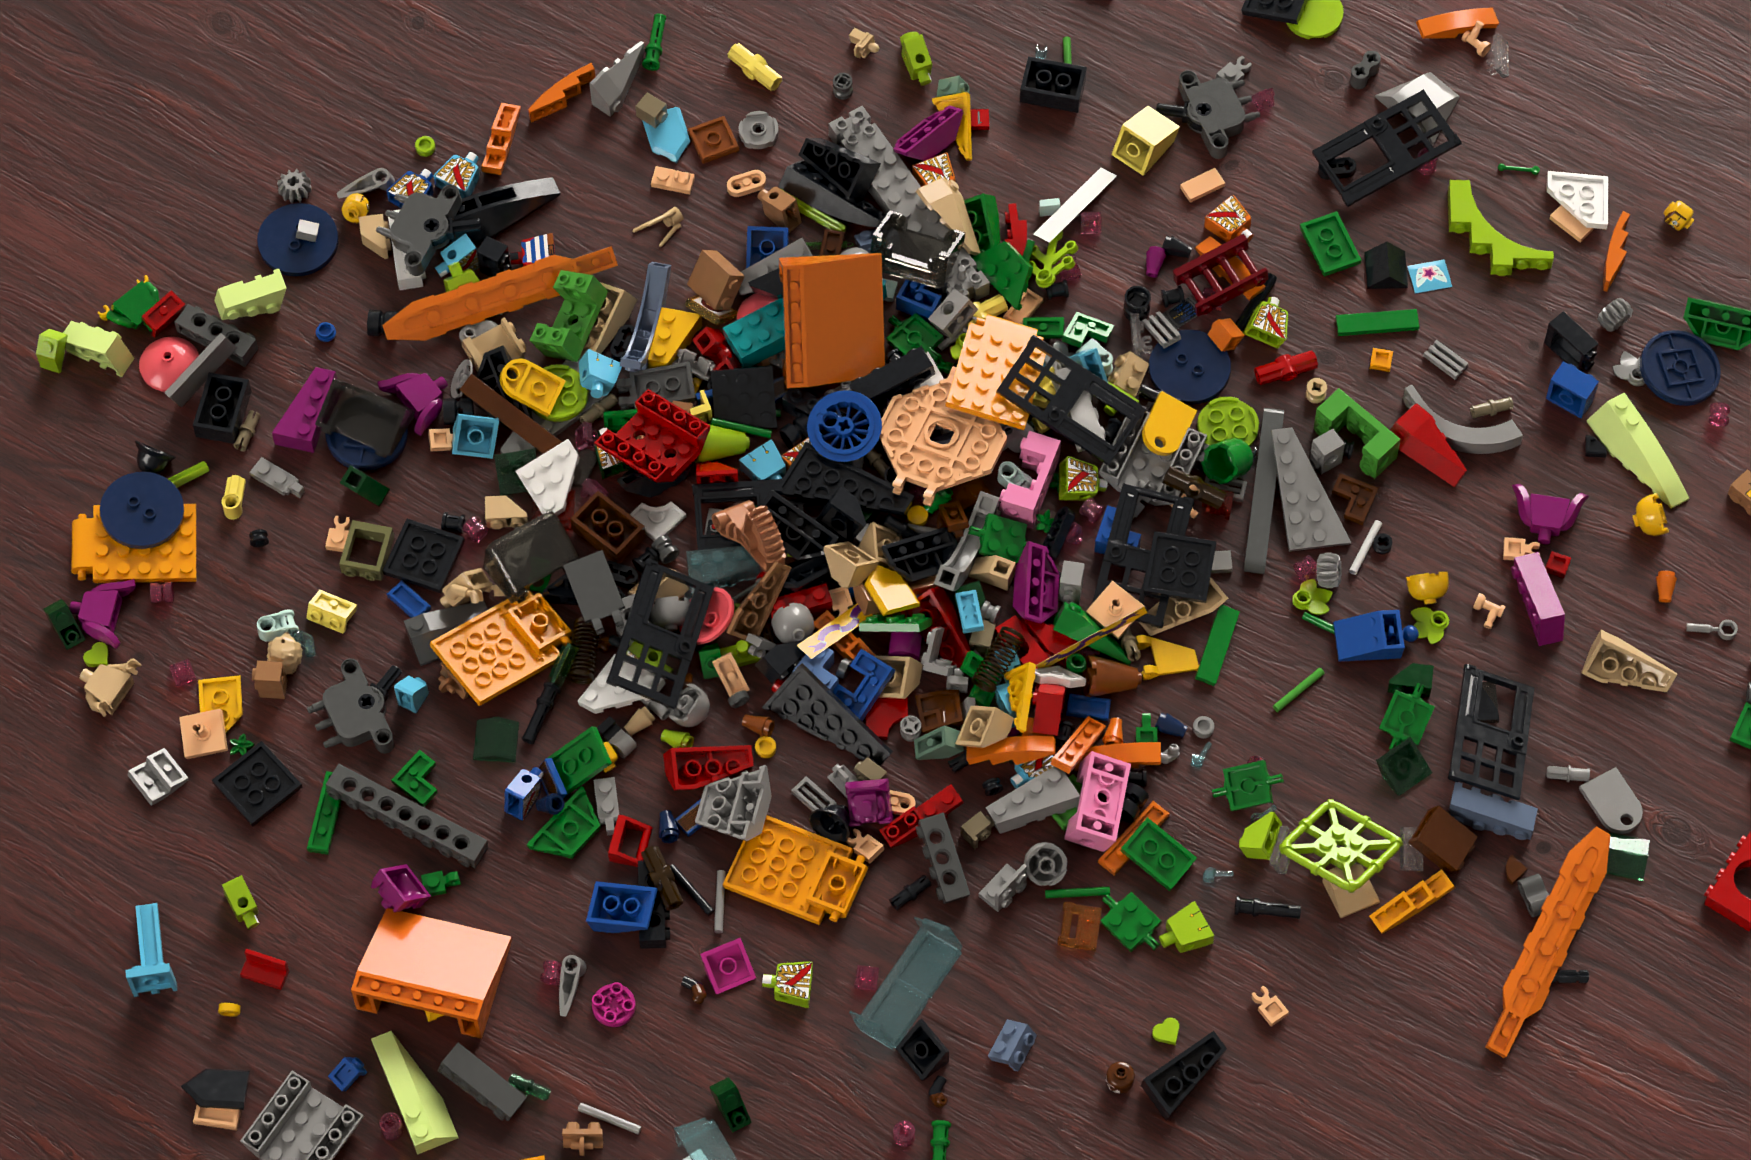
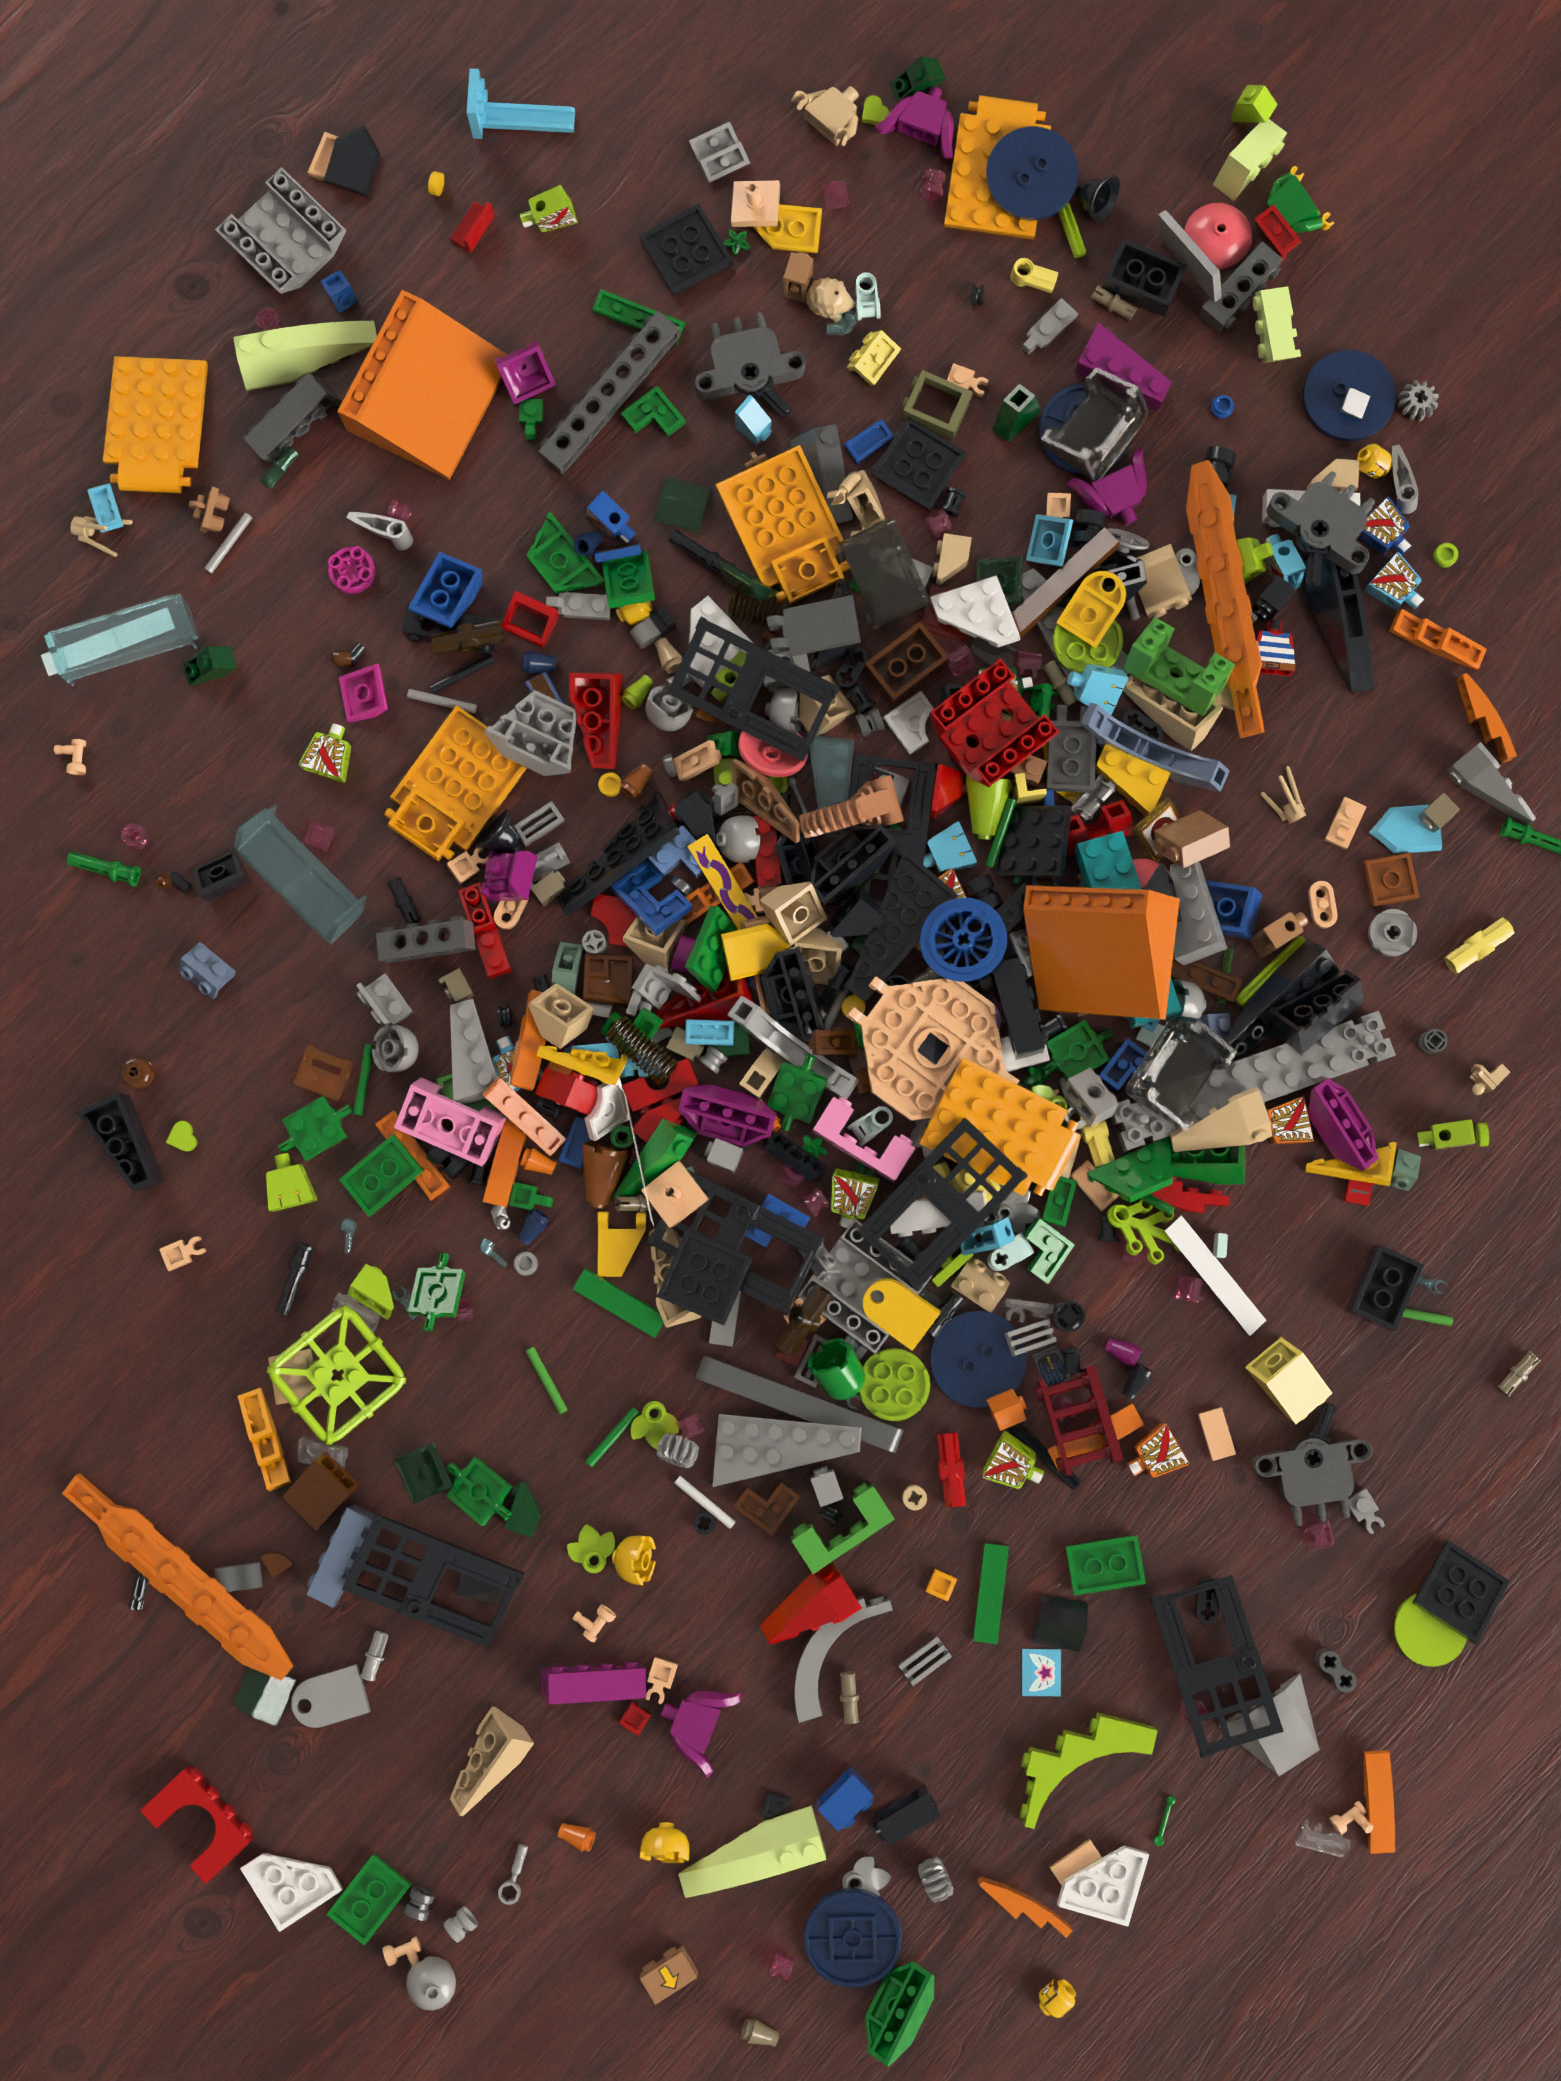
camera: 100 degrees right, 20 degrees up
(1366, 639) = (587, 1472): blue slope -> none

